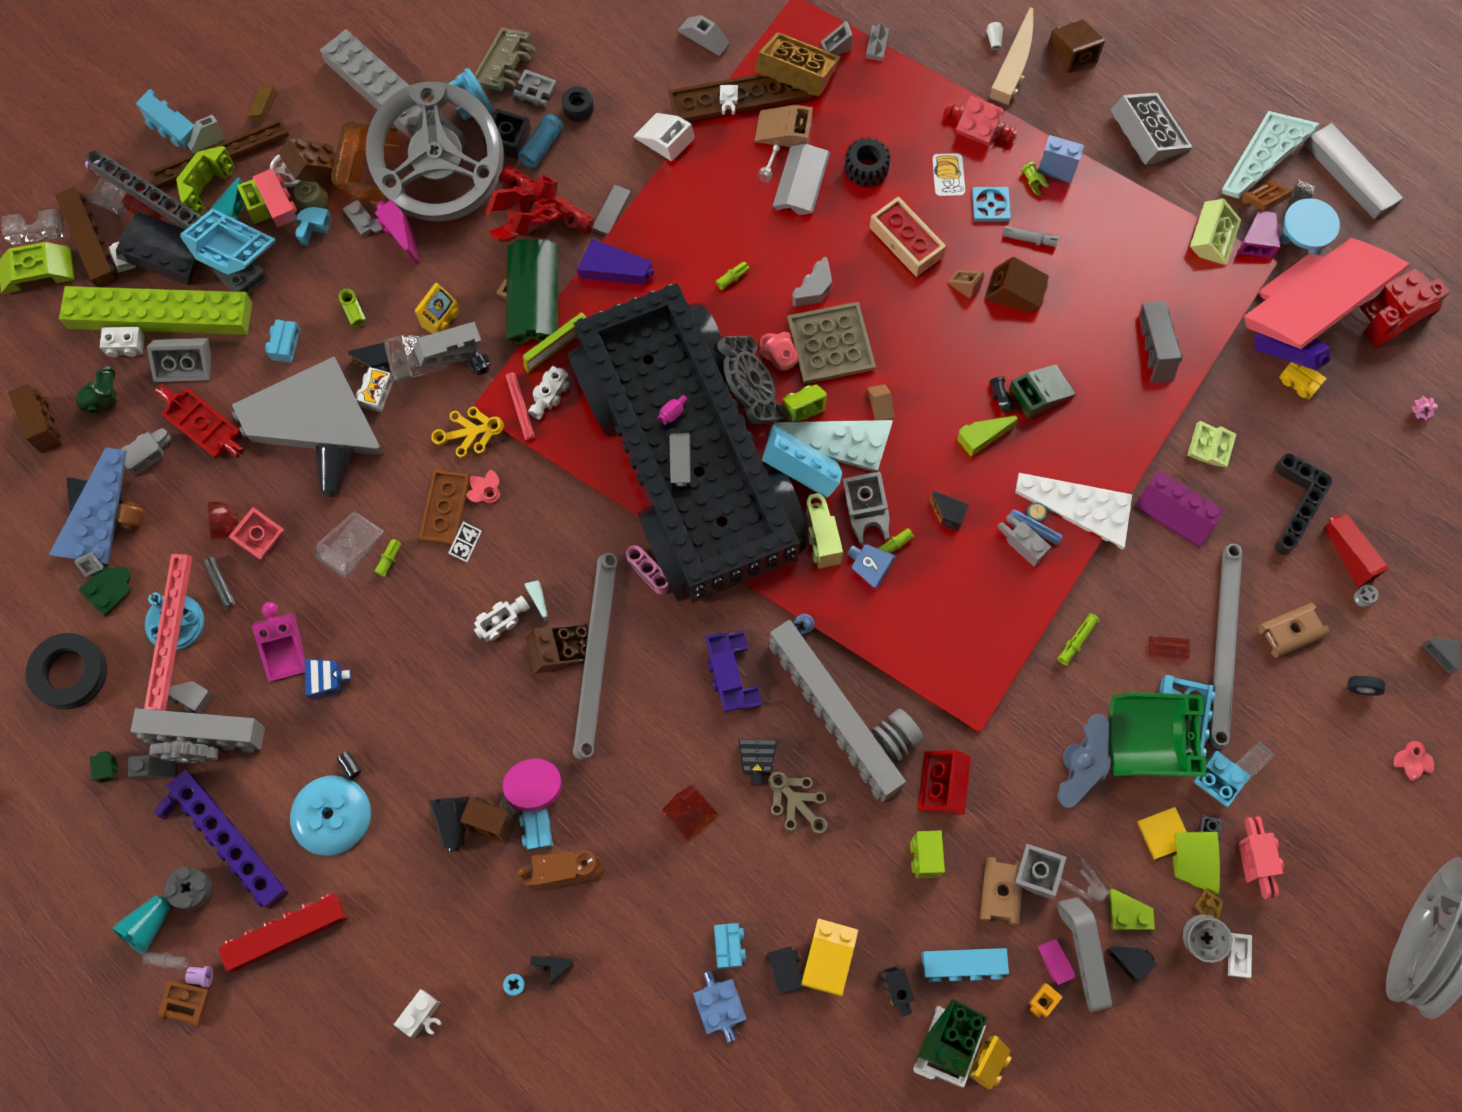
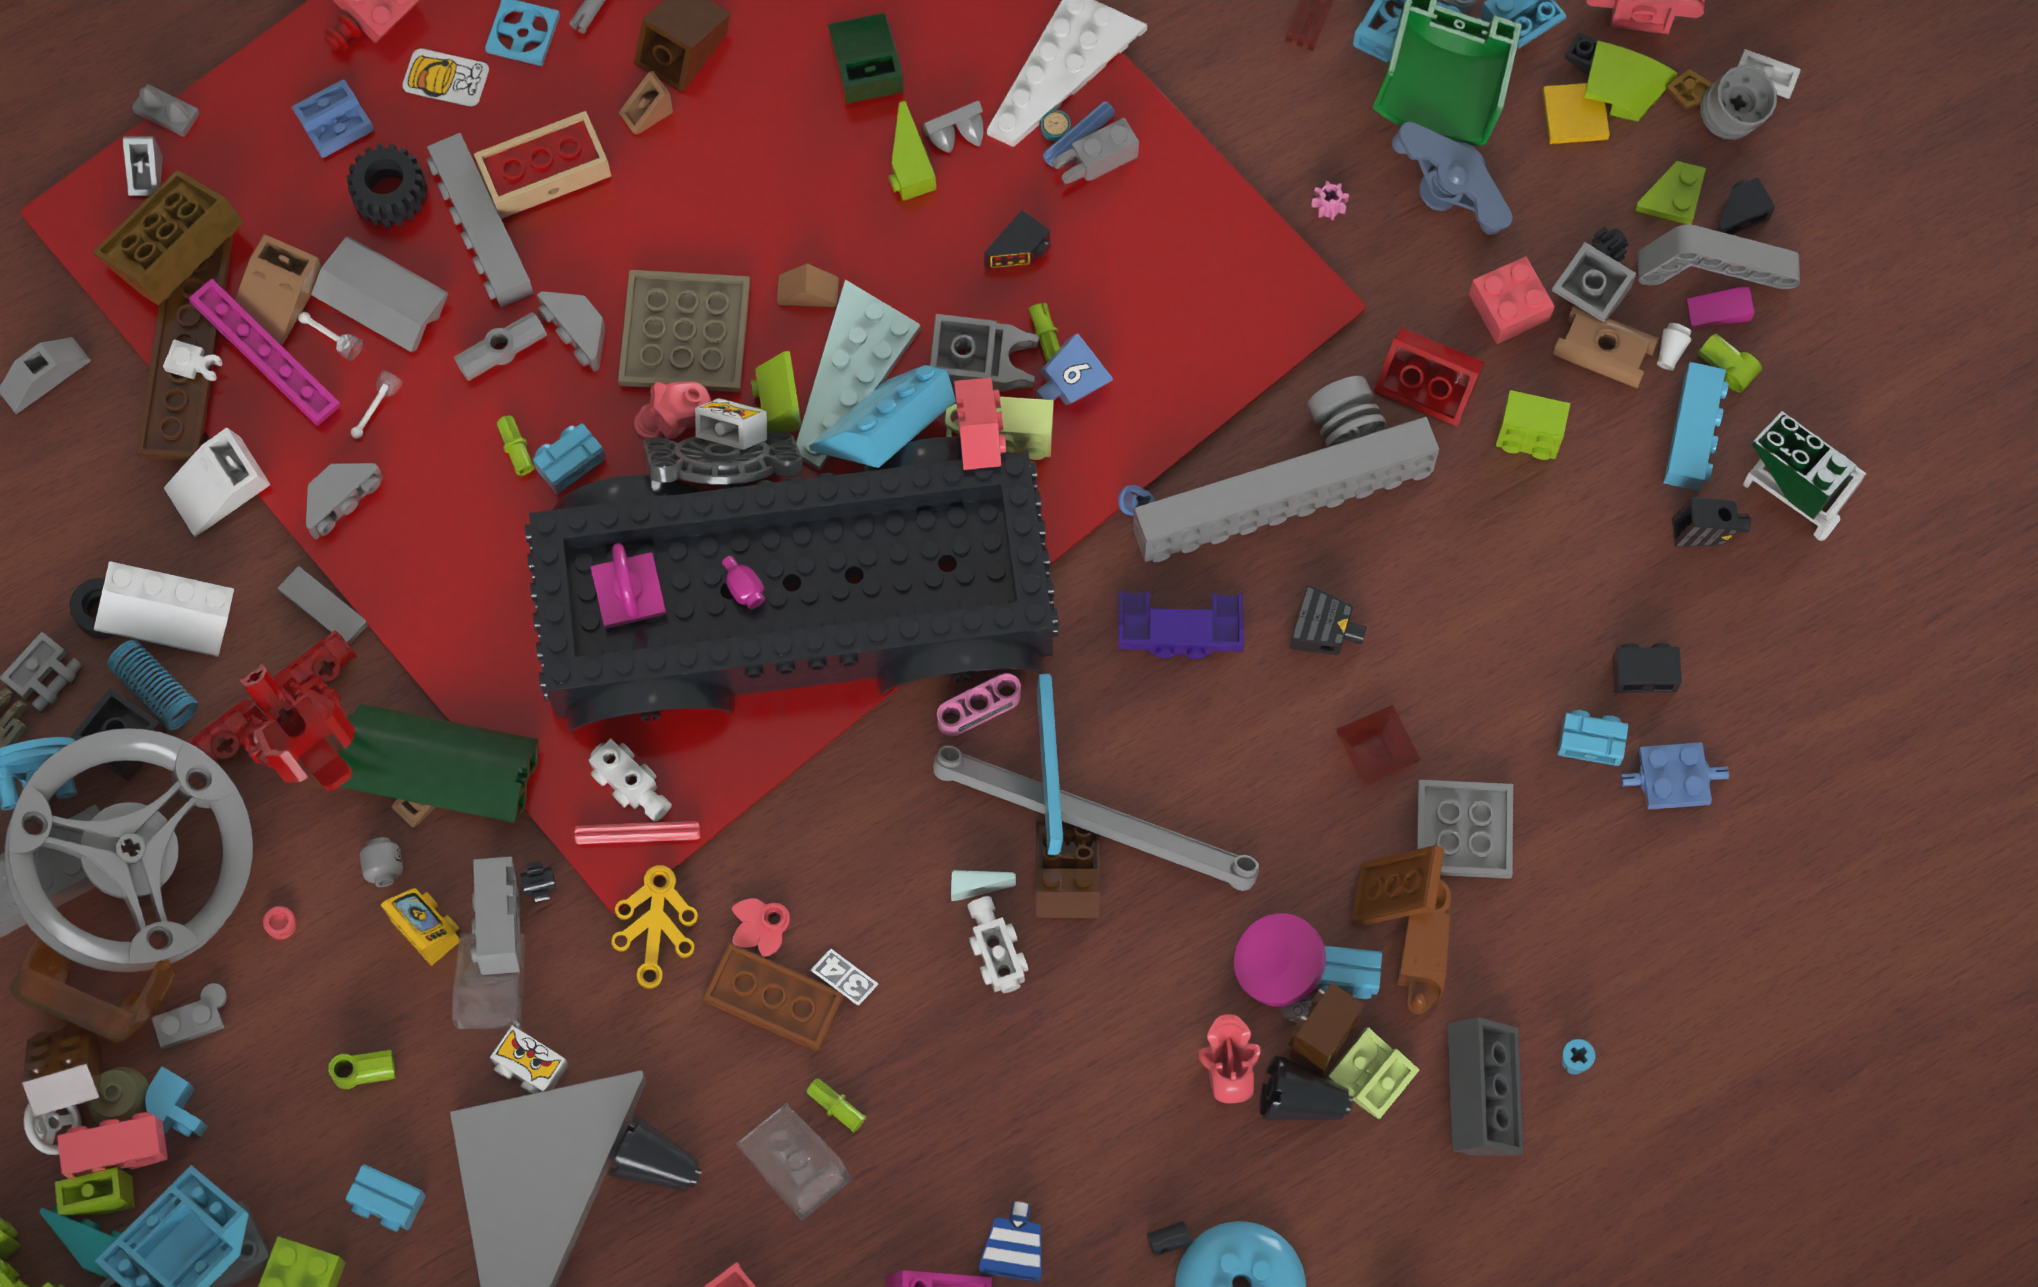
camera: 75 degrees left, 0 degrees up
(371, 356) = (469, 1053): black slope -> none
(396, 224) = (238, 953): dark pink slope -> none
(418, 1014) = (1588, 1209): white brick -> none
(426, 245) = (279, 922): none -> coral tile
(460, 771) = (1230, 1059): none -> coral head
(470, 282) = (381, 861): none -> light grey head
(478, 860) = (1373, 1072): none -> yellowish green slope
(482, 932) = (1485, 1088): none -> dark grey slope
(550, 345) = (550, 744): lime tile -> none
(558, 966) = (1563, 990): black slope -> none
(582, 130) = (163, 609): none -> white slope
(588, 841) = (1398, 886): none -> dark orange tile
(614, 265) = (432, 623): dark purple slope -> none
(617, 616) = (1049, 764): none -> medium azure tile
(647, 879) = (1470, 823): none -> light grey plate
(651, 349) = (628, 588): none -> dark pink tile
(673, 193) = (338, 493): none -> light grey slope
(680, 459) = (830, 588): light grey slope -> none
(732, 304) = (568, 457): none -> medium azure brick
(746, 132) = (264, 352): none -> dark pink plate
(748, 199) = (387, 385): none -> hinge
(775, 380) = (731, 423): none -> white brick
(782, 242) = (484, 356): none -> light grey piece
(795, 800) = (1401, 590): dark tan plant -> none
(806, 507) = (979, 423): none -> coral wedge
(829, 957) = (1644, 599): yellow slope -> none
(857, 219) = (480, 220): none -> light grey brick
(901, 125) = (333, 118): none -> medium blue slope
(989, 1062) = (1839, 429): yellow slope -> none
(999, 393) = (849, 115): black connector -> none
(1013, 821) = (1511, 300): none -> coral brick
(1016, 982) = (1740, 367): none -> lime piece
(1018, 936) = (1673, 344): none -> white cone
(1019, 460) = (967, 121): none -> light grey tile
(1039, 690) = (1330, 200): none -> bright pink gear
(1051, 998) = (1774, 330): light orange brick -> none
(1073, 876) = (1611, 243): none -> black gear
(1074, 645) = (1272, 141): lime pin -> none
(1097, 889) = (1633, 224): clear plant -> none

